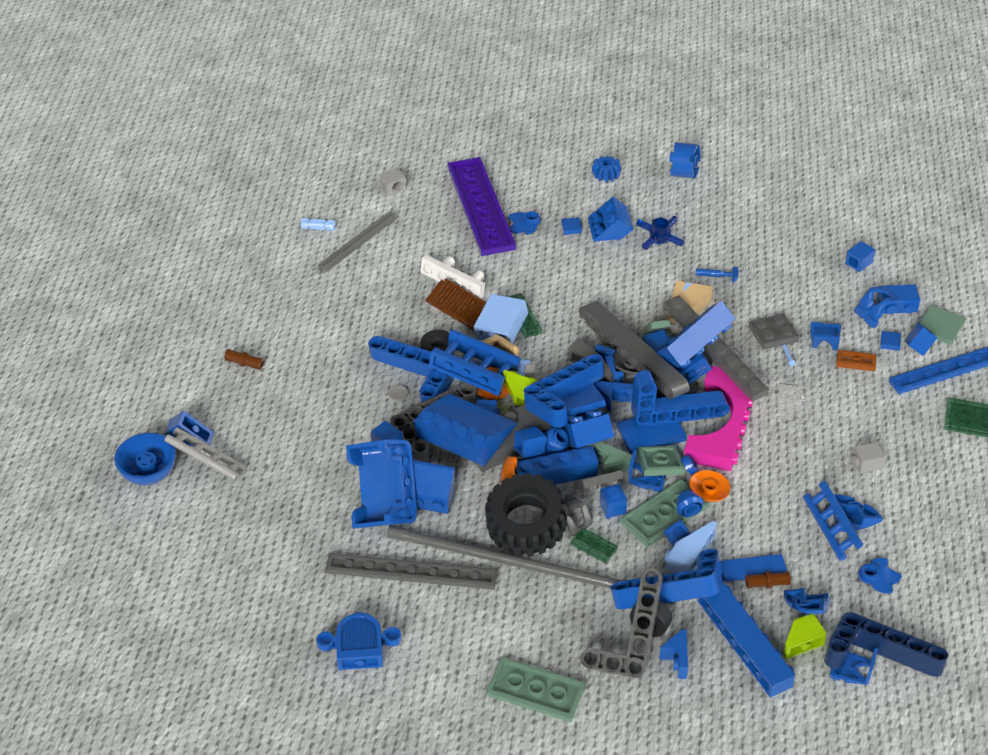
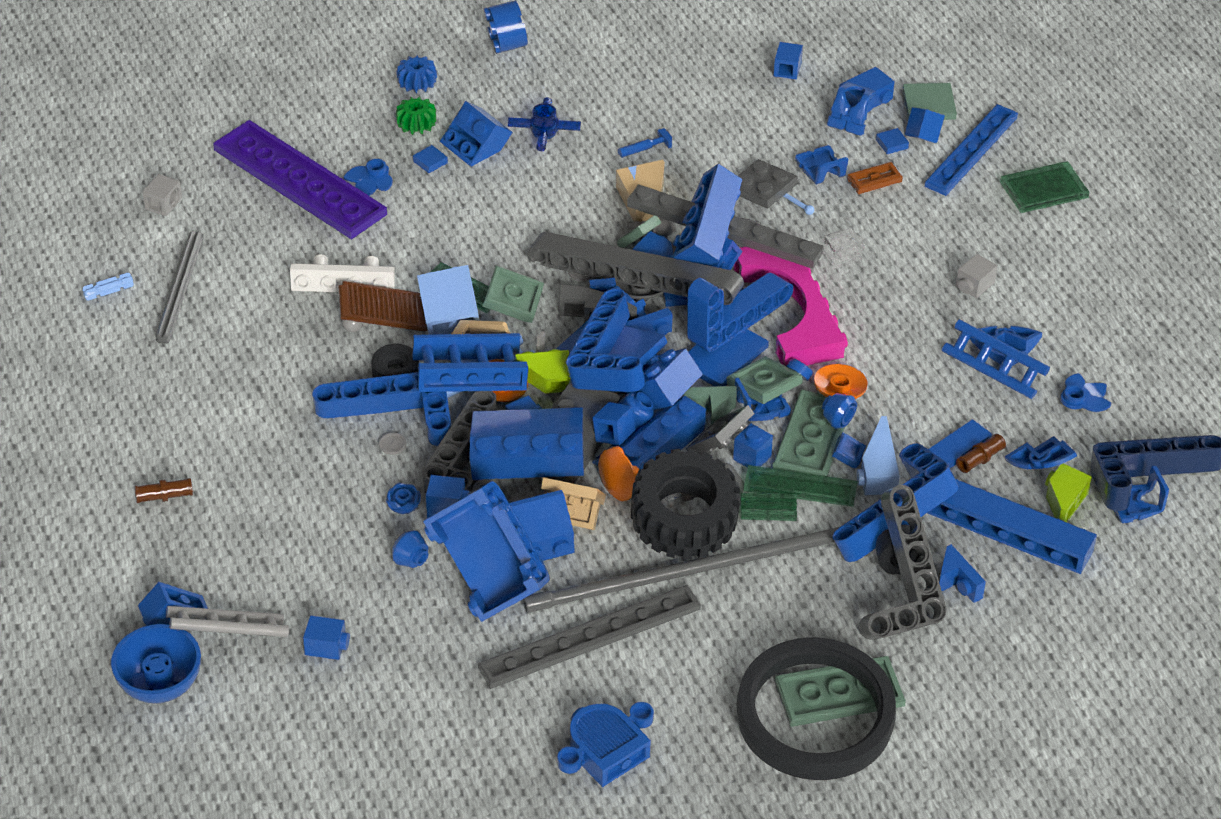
camera: 35 degrees left, 0 degrees up
(255, 491) = (325, 637): none -> blue brick
(344, 466) = (410, 550): none -> blue cone
(368, 426) = (403, 498): none -> blue plate
(469, 481) = (581, 501): none -> tan bracket
(512, 736) = (808, 764): none -> black tyre
(547, 332) = (513, 294): none -> sand green tile
(583, 194) = (416, 115): none -> green gear
(626, 541) = (805, 485): none -> clear green tile

